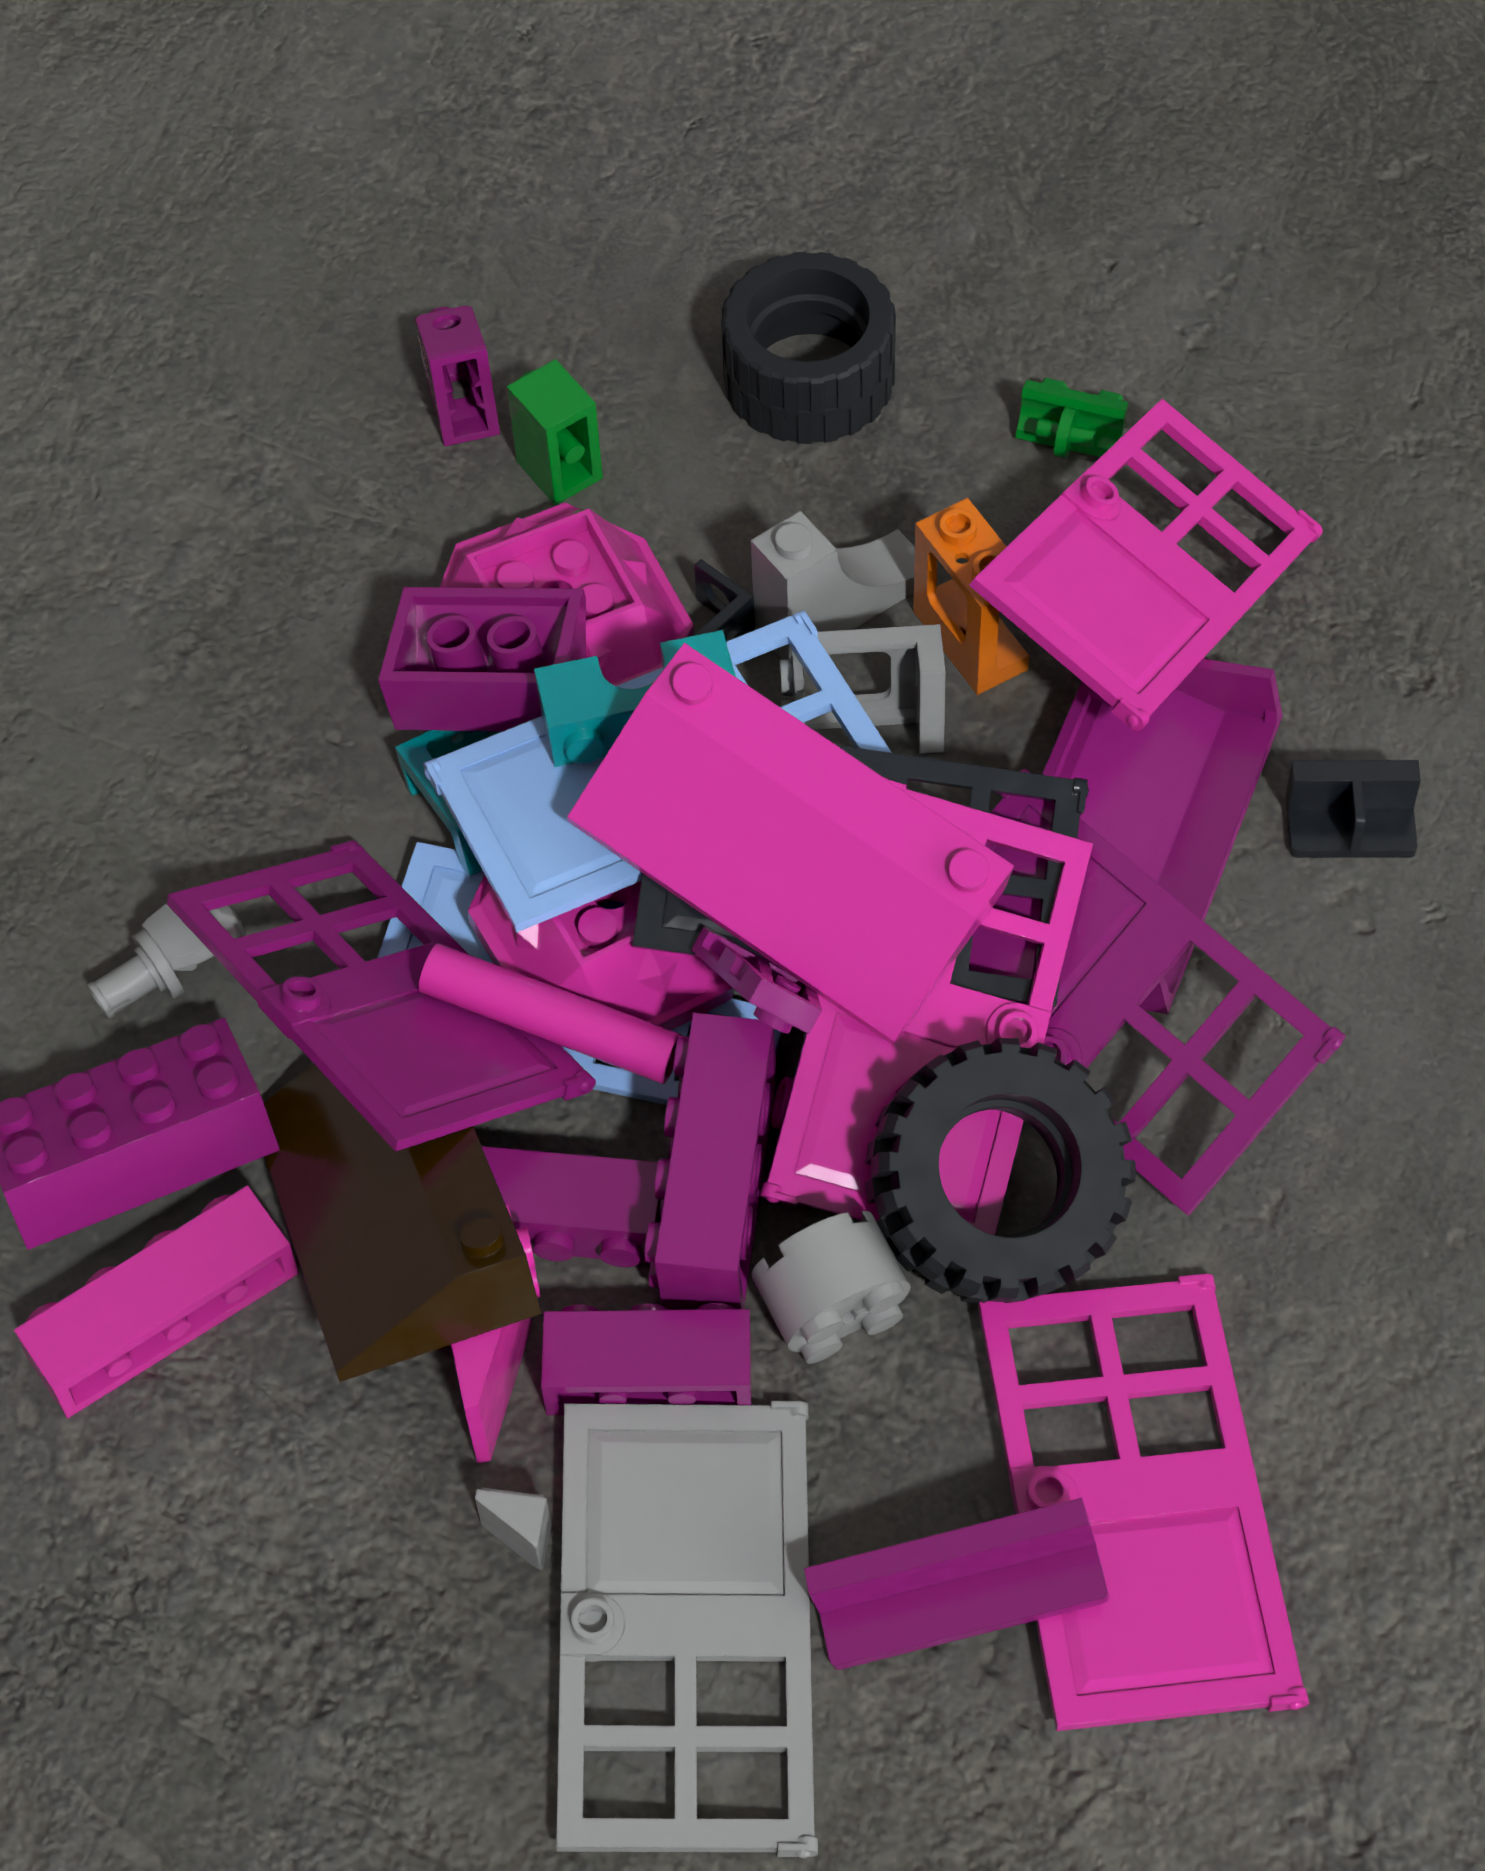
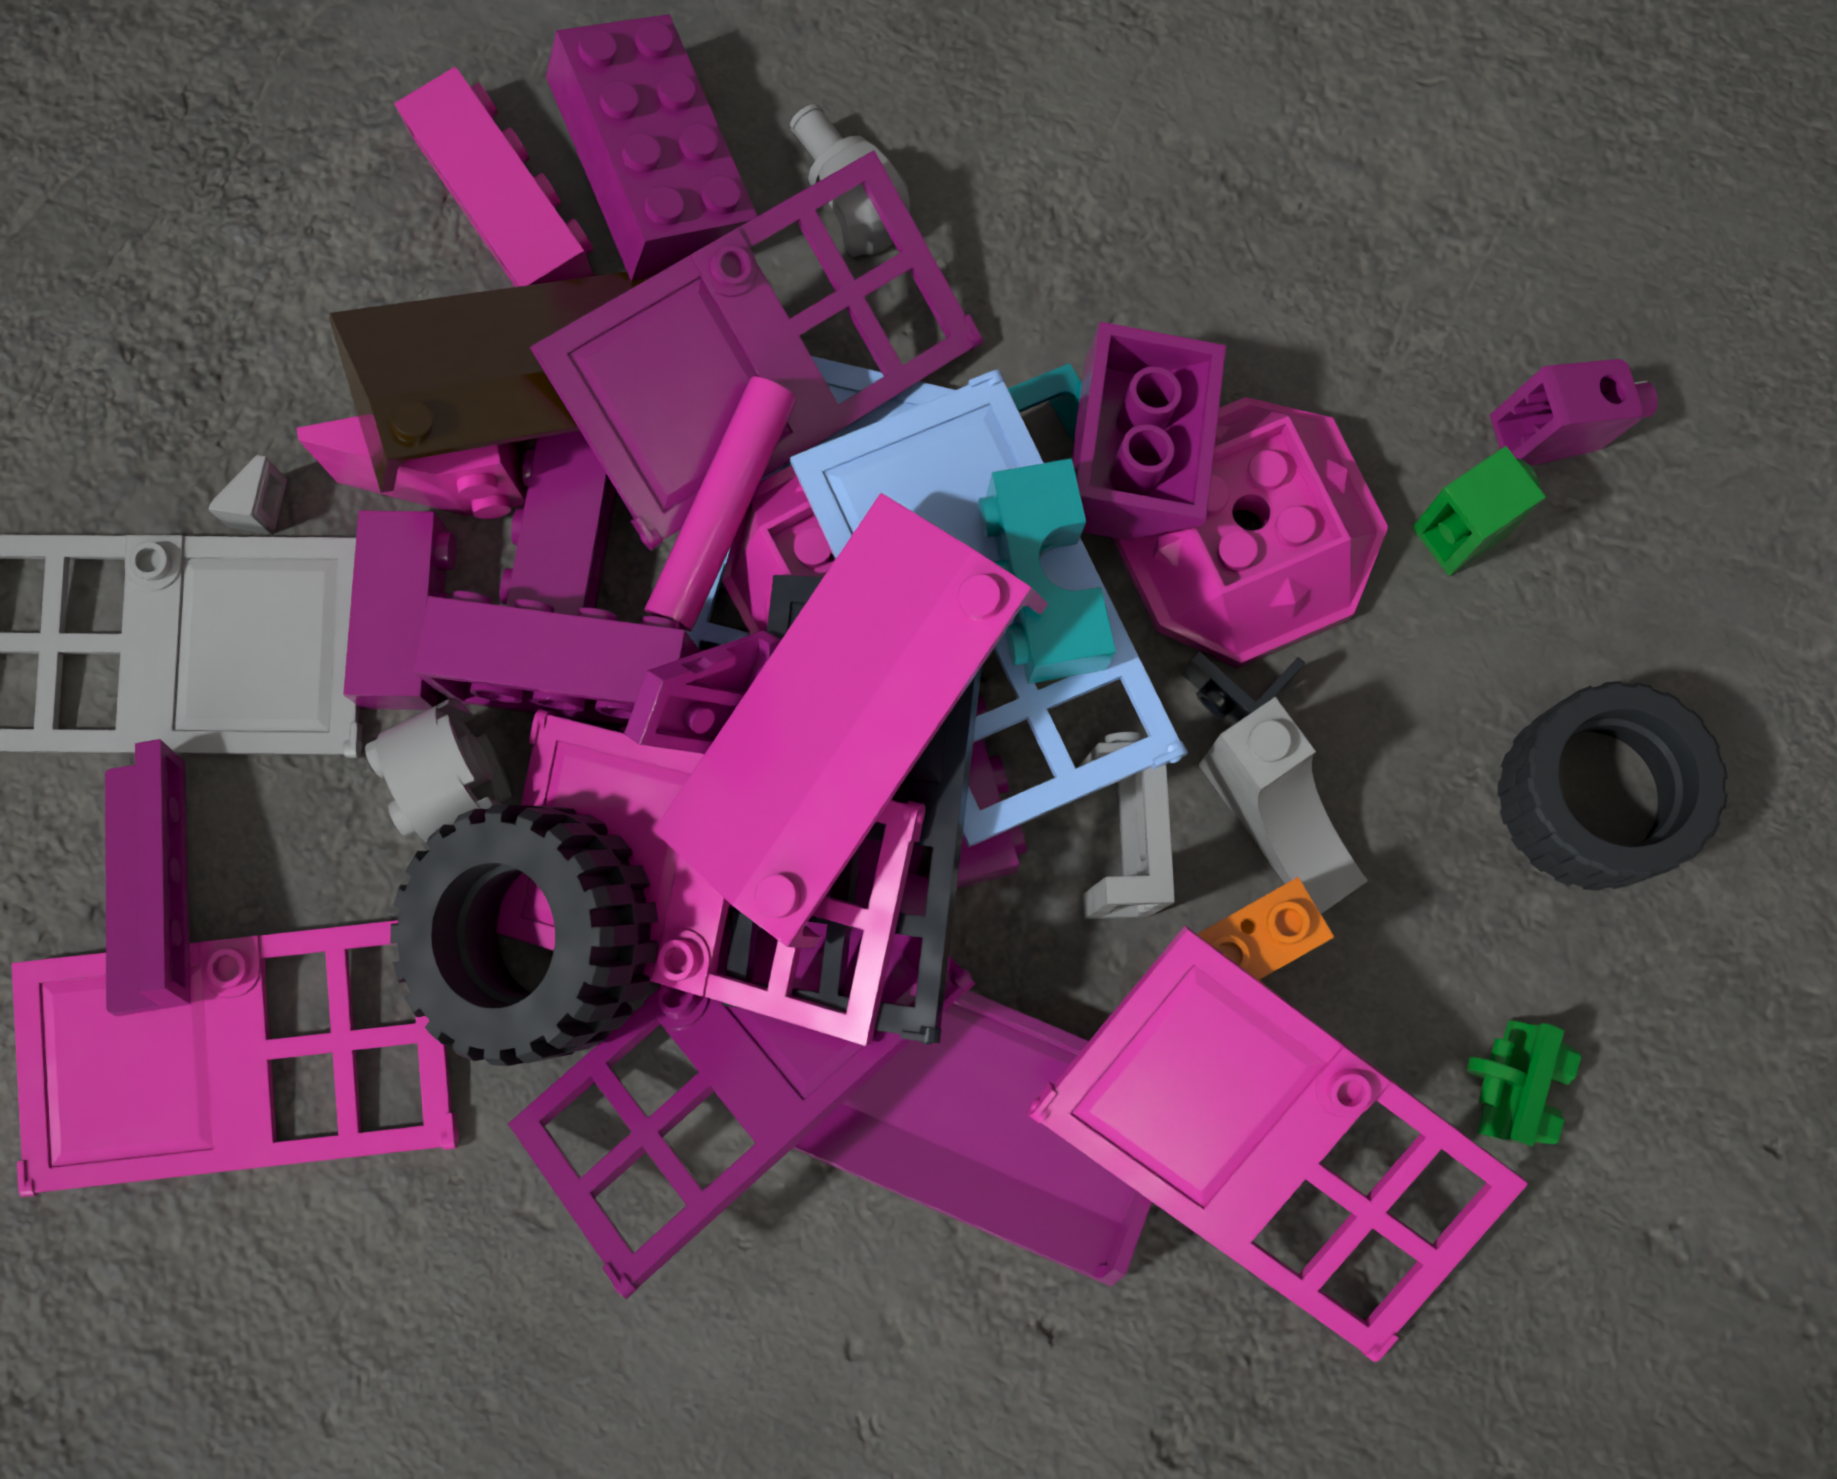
camera: 90 degrees right, 20 degrees up
(1352, 808) = (983, 1352): black panel -> none

